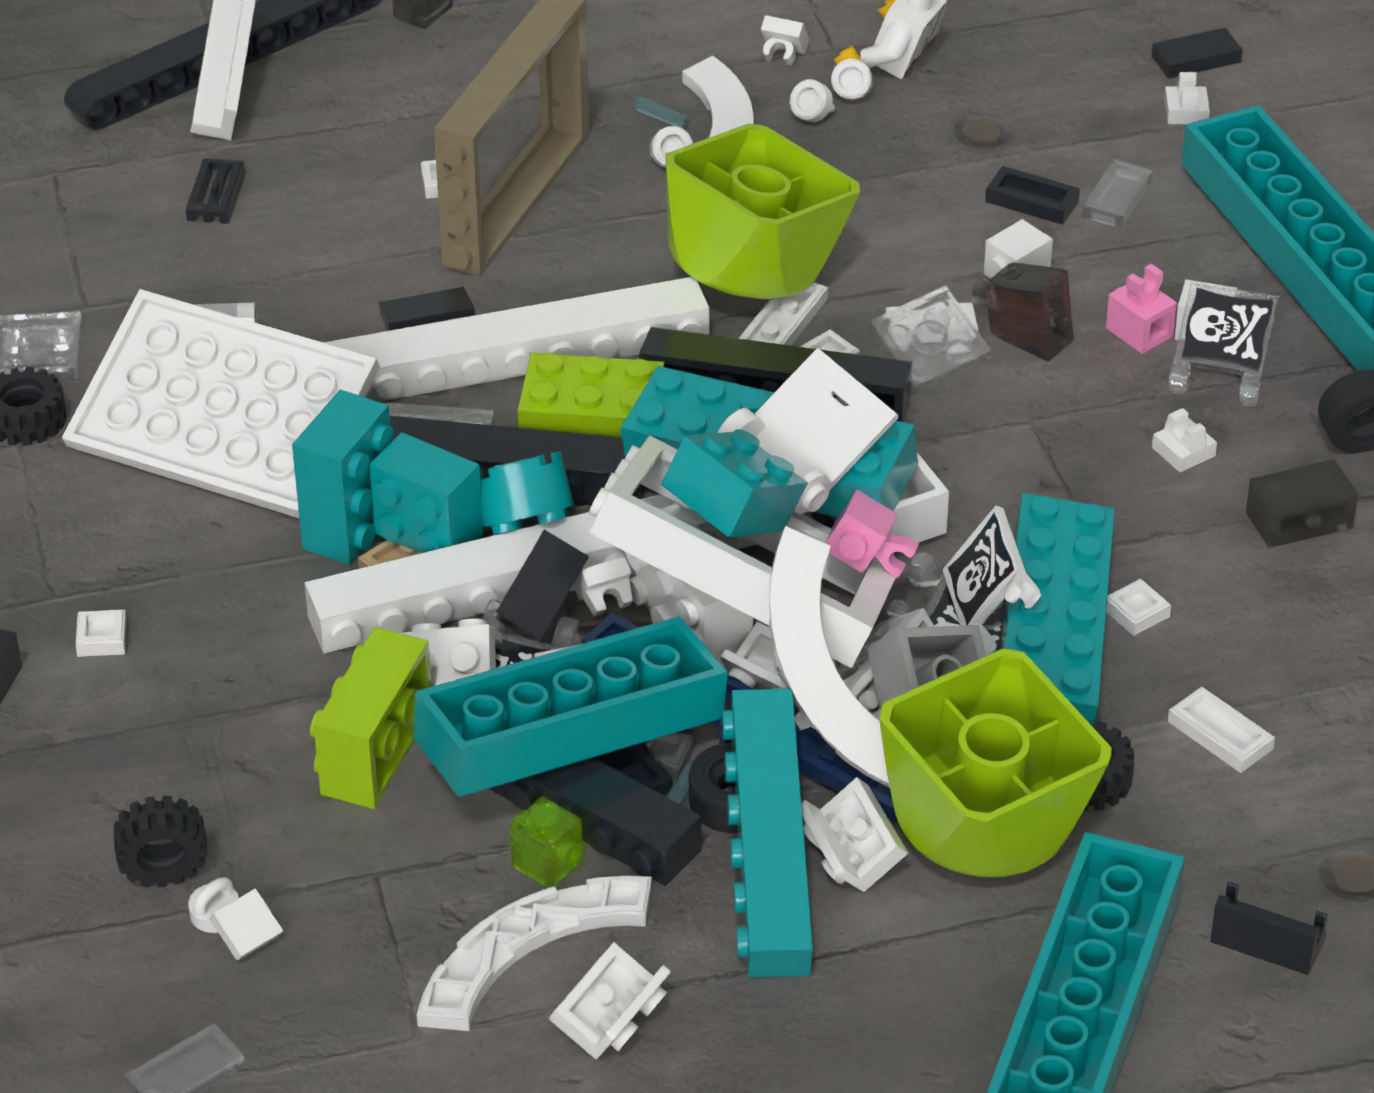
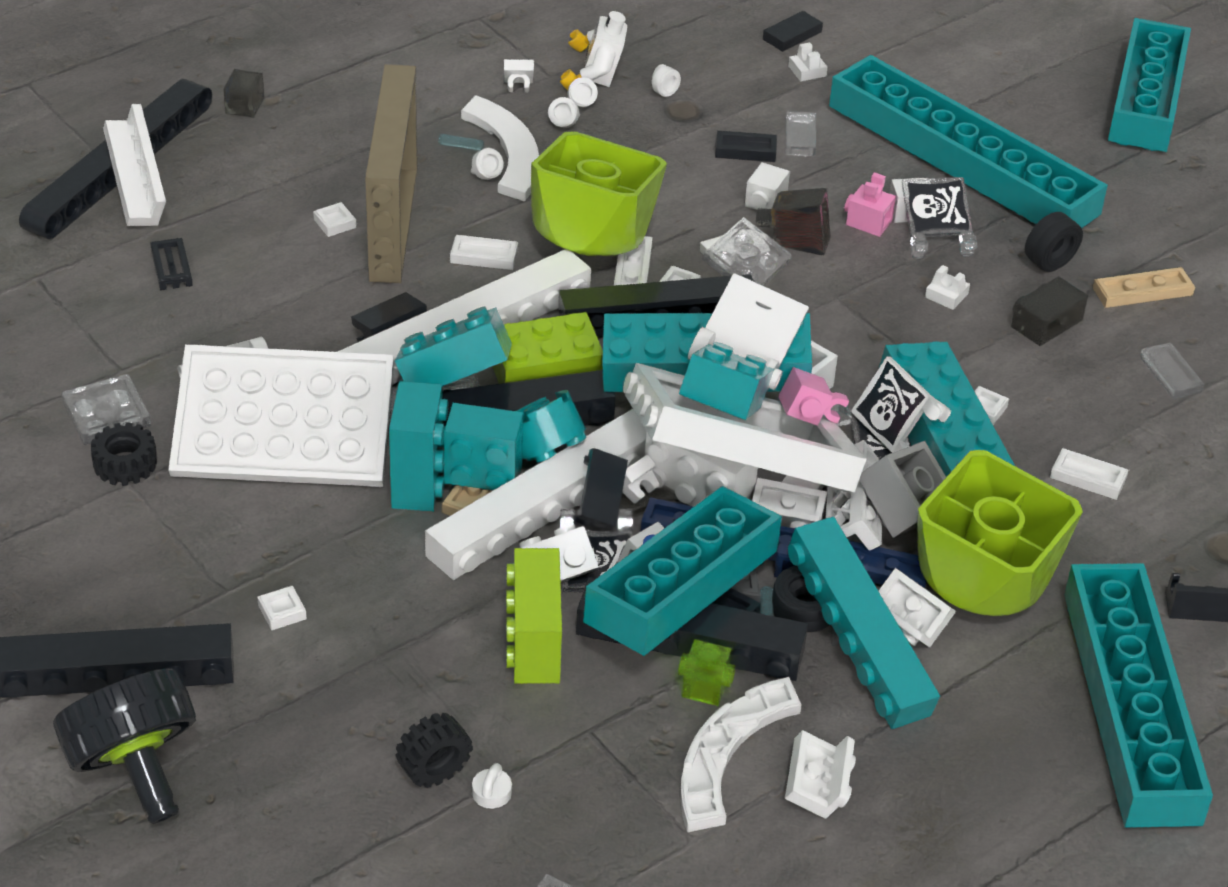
camera: 25 degrees left, 0 degrees up
(246, 924) = (526, 794): white tile -> none
(454, 369) = (455, 349): none -> teal brick
(604, 259) = (484, 252): none -> white tile
(806, 660) = (836, 496): white tile -> none
(973, 86) = (665, 80): none -> white tile

